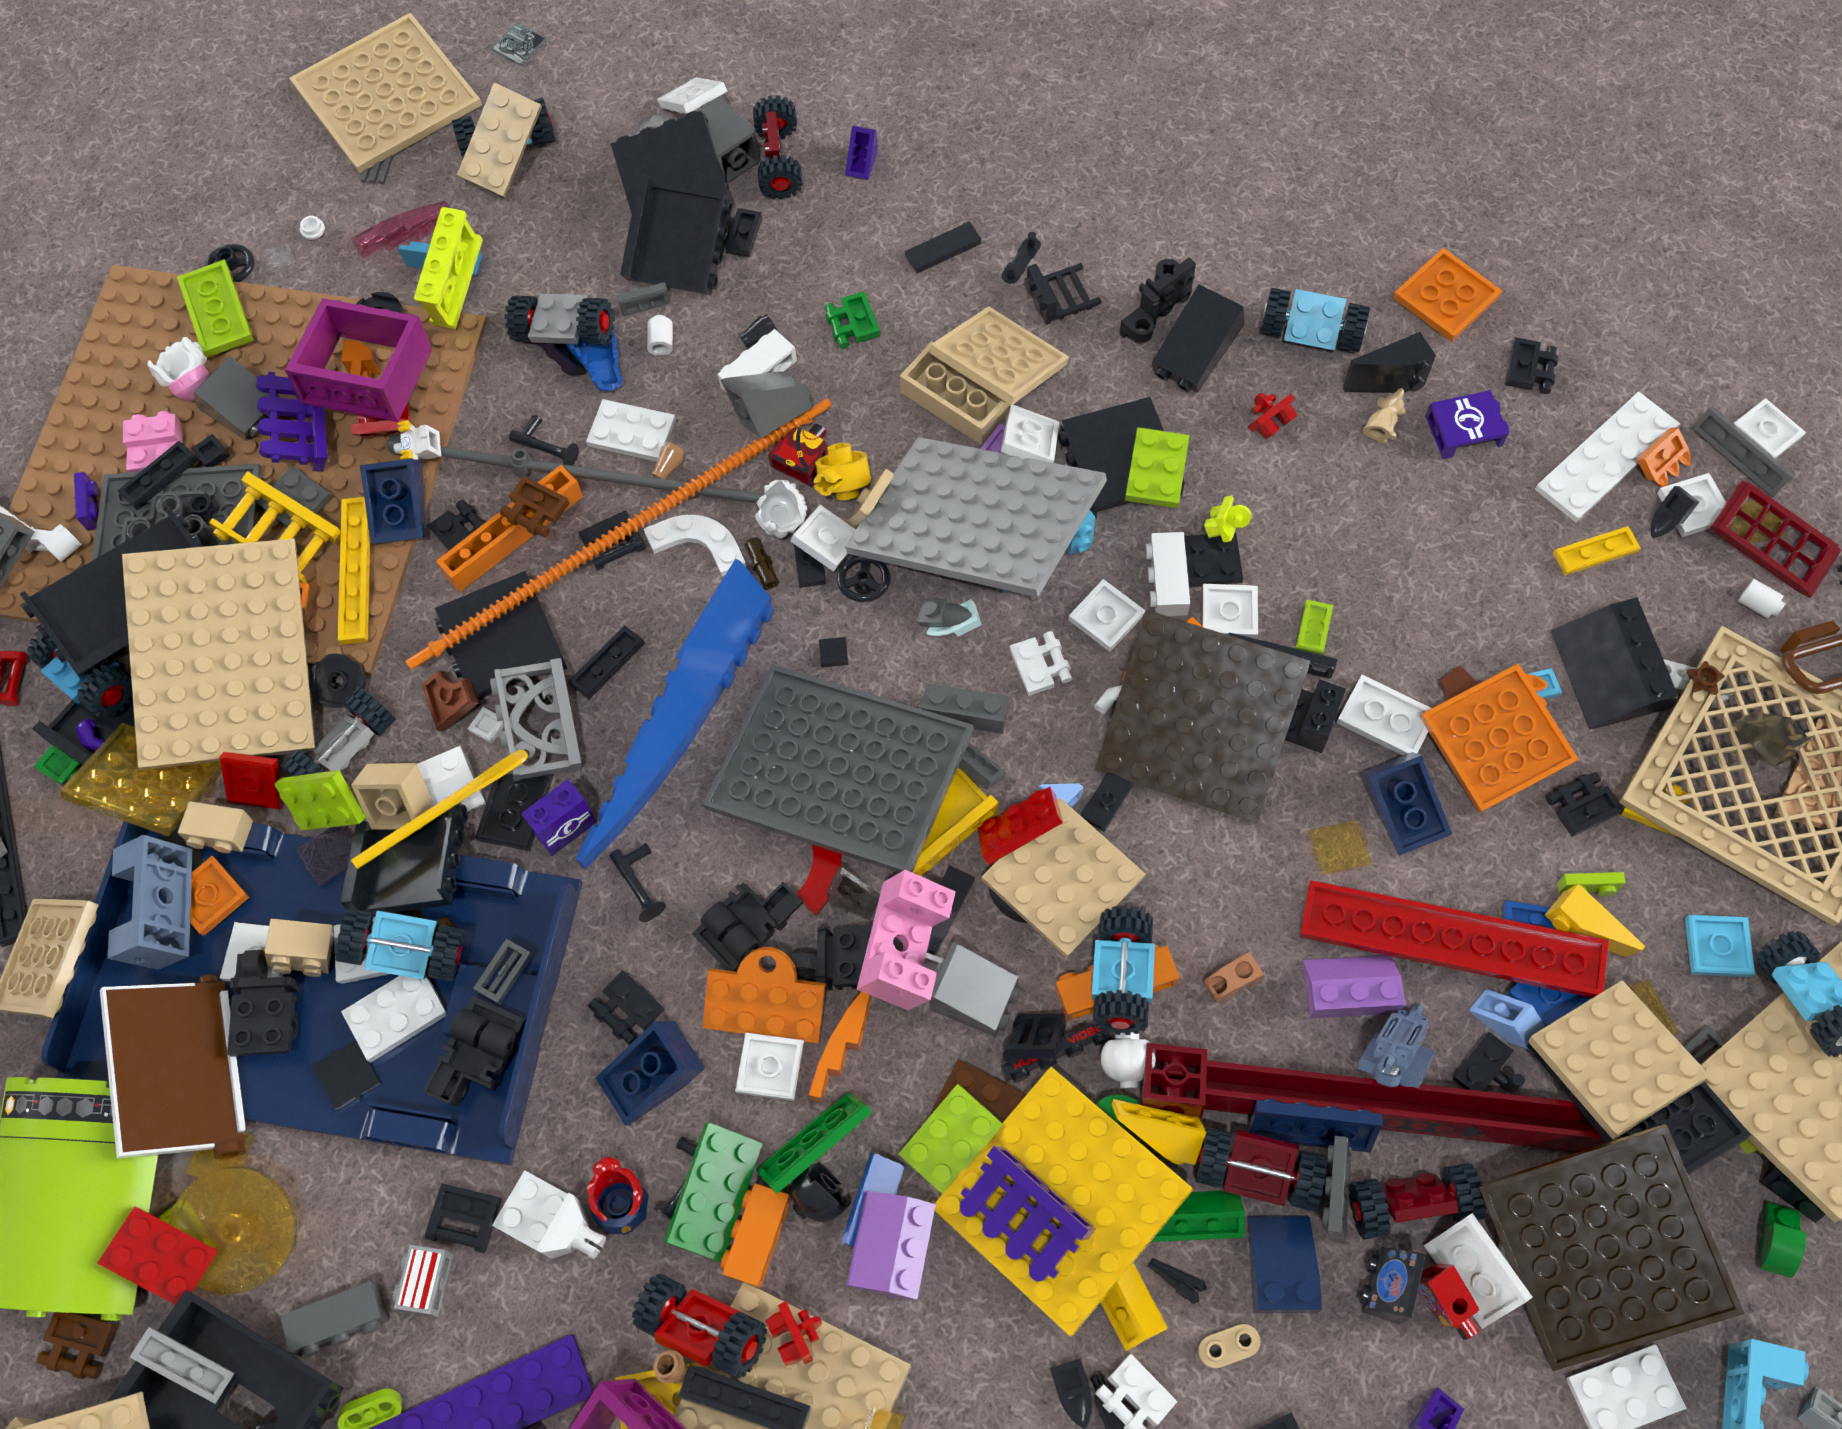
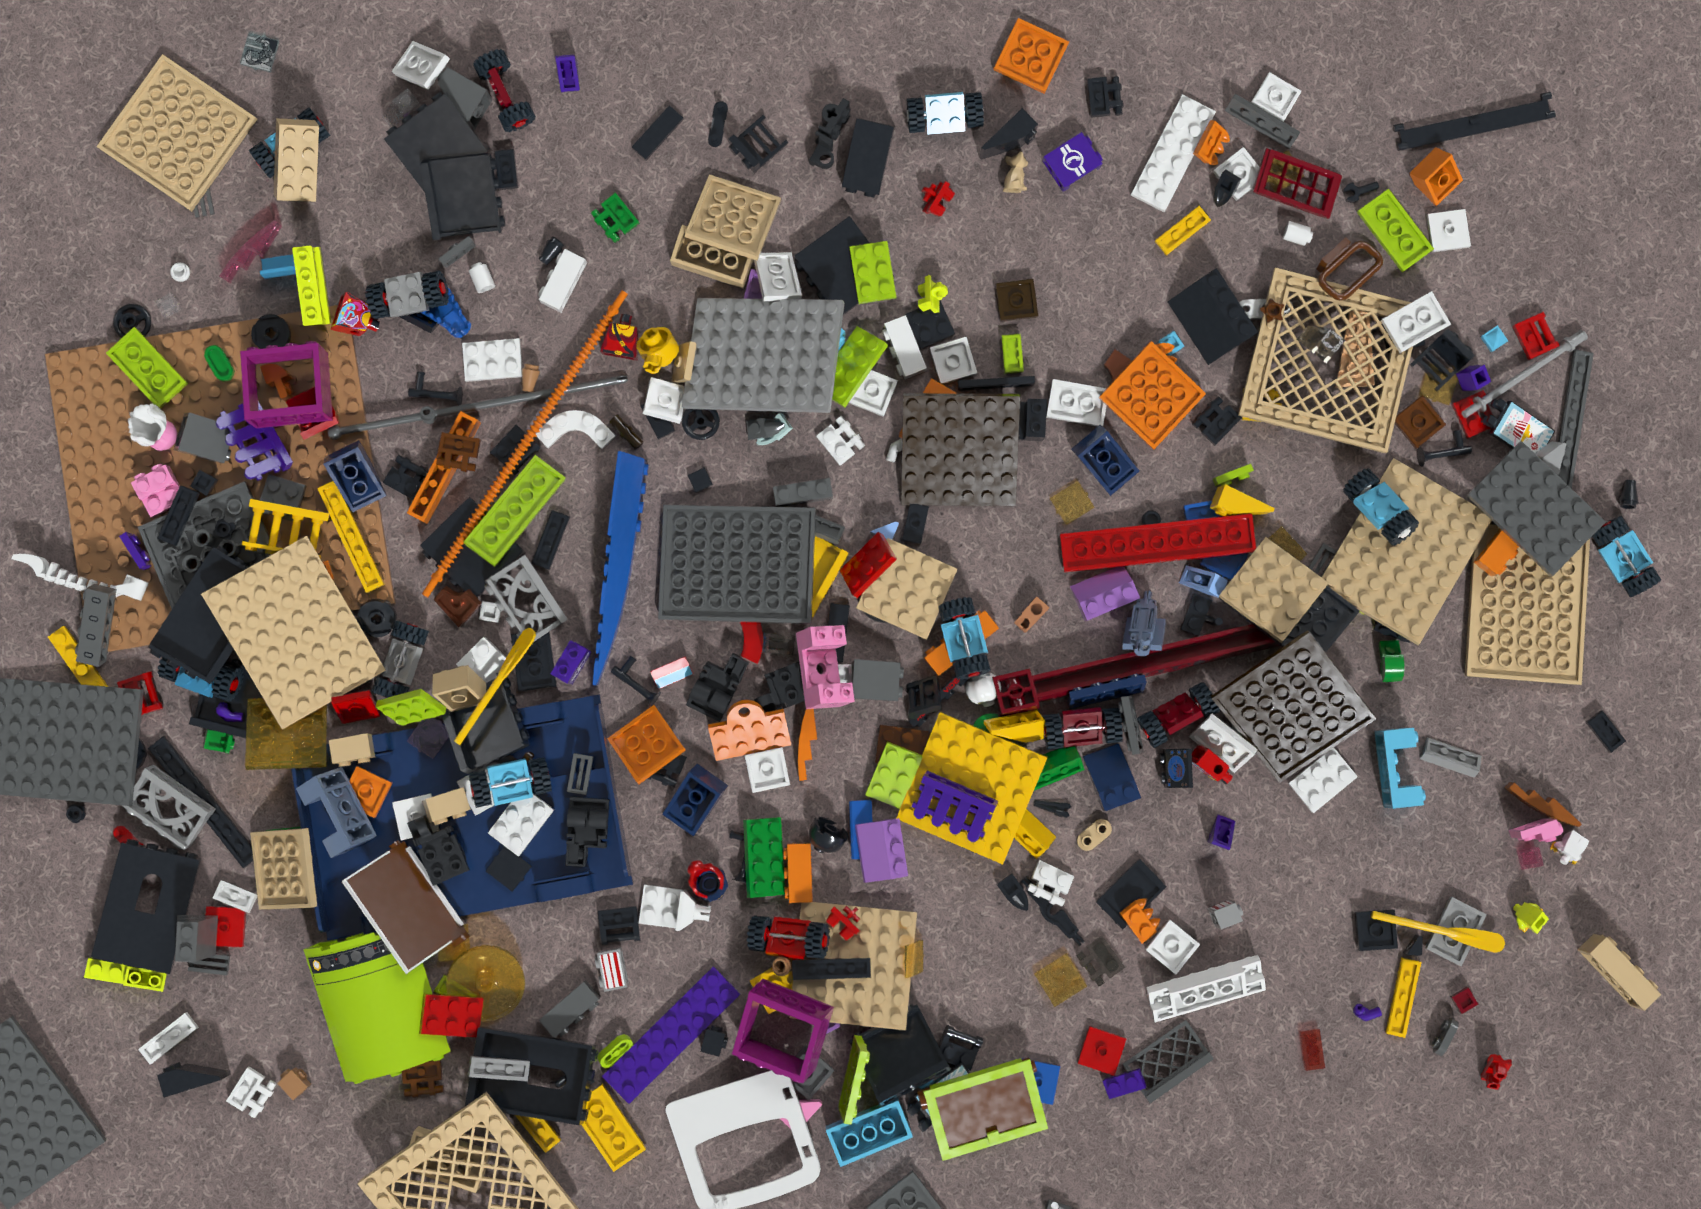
camera: 30 degrees left, 20 degrees up
(297, 323) = (219, 363): none -> green tile
(418, 442) = (352, 430): white piece -> none
(484, 327) = (353, 316): none -> torso
(573, 605) = (514, 510): none -> lime plate
(613, 967) = (646, 744): none -> orange plate
(691, 884) = (671, 672): none -> slope
(766, 400) = (583, 308): dark grey slope -> none
(781, 508) = (627, 392): white hair -> none
(813, 1141) = (812, 807): green tile -> none
(1090, 574) = (855, 363): none -> lime plate
(1341, 564) = (1016, 300): none -> dark brown plate
(1451, 900) = (1151, 517): none -> black plate
(1719, 945) = (1319, 488): medium azure plate -> none

